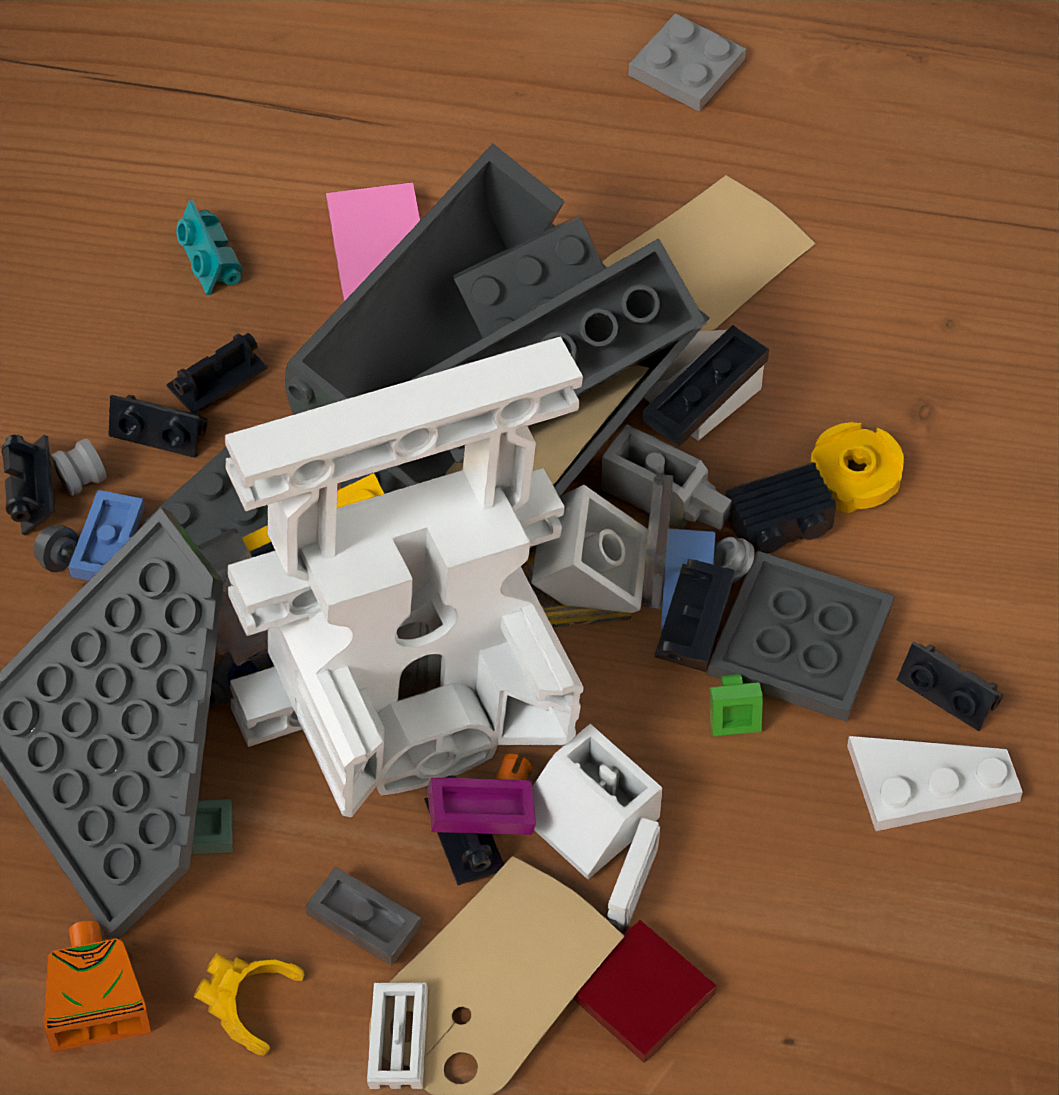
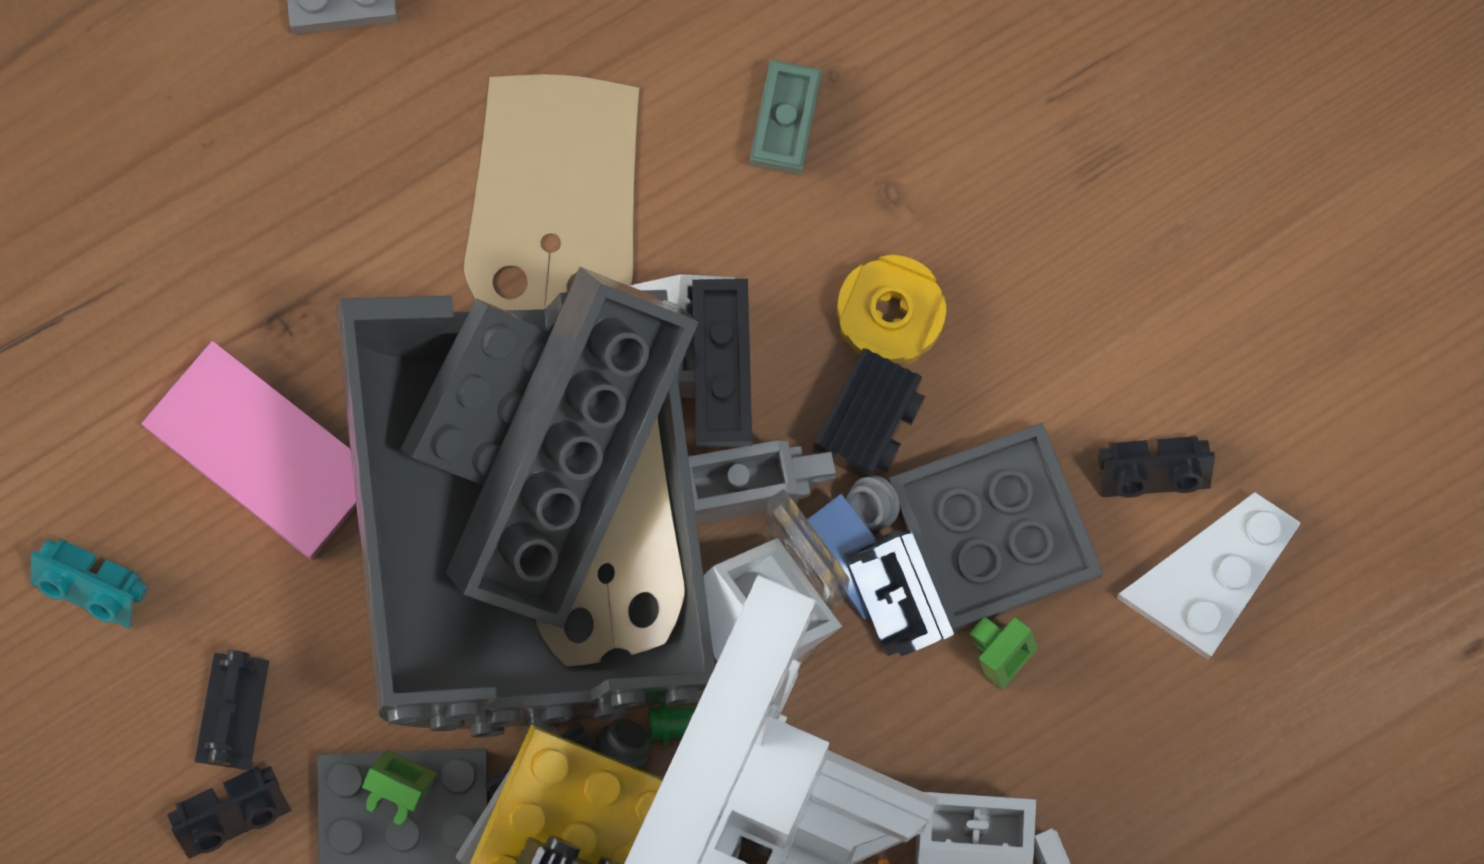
camera: 45 degrees left, 20 degrees up
(893, 316) = (785, 117): none -> sand green plate

